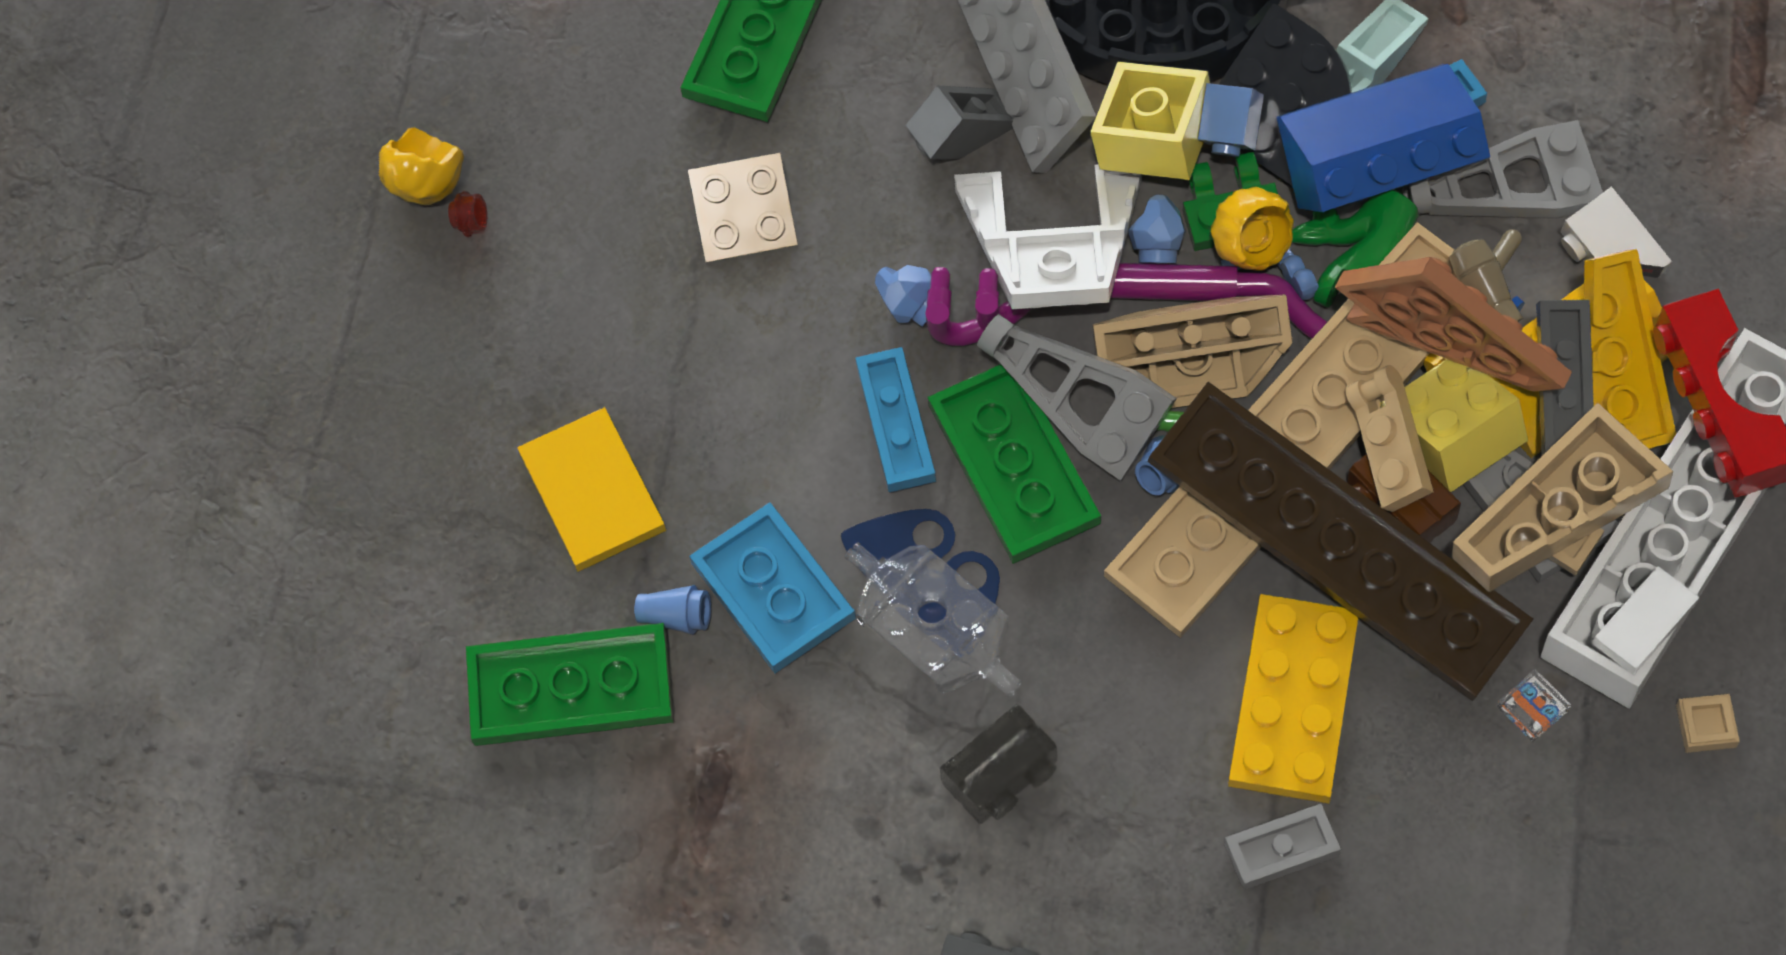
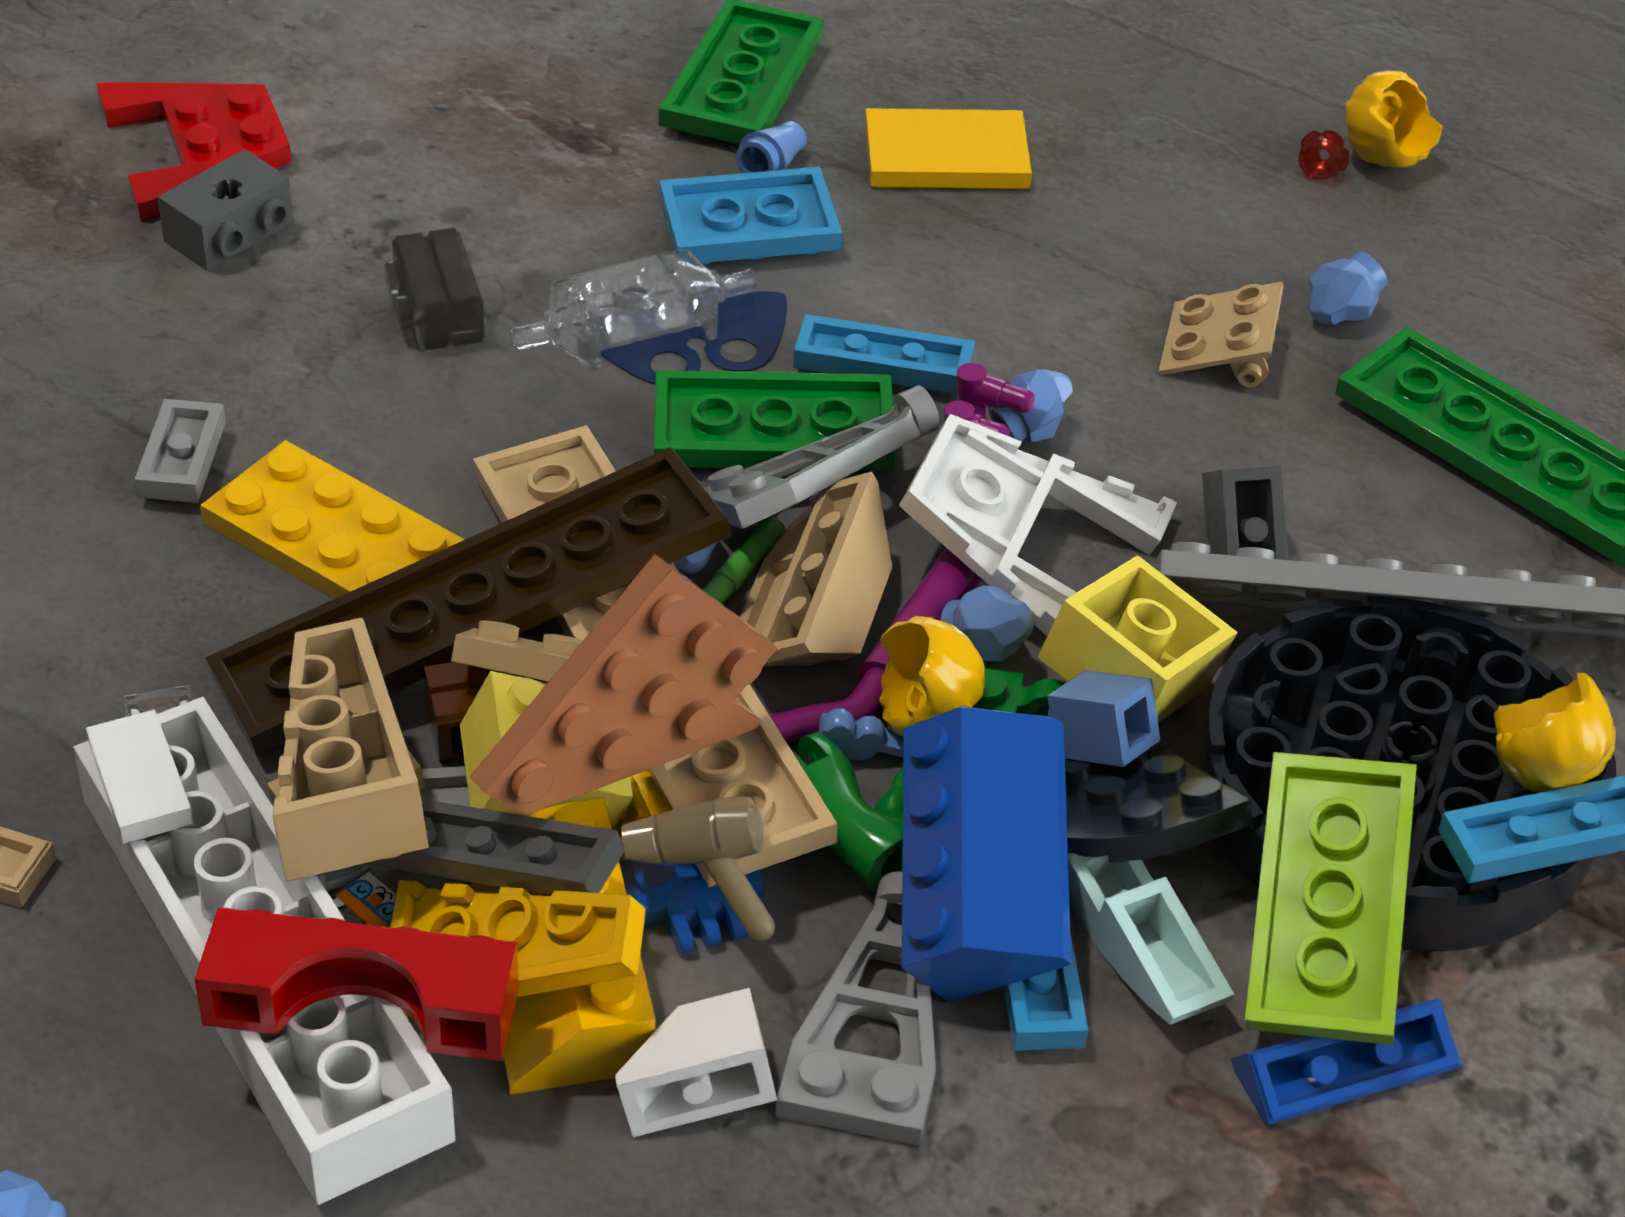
camera: 105 degrees right, 20 degrees down
(654, 140) = (1346, 289): none -> medium blue rock

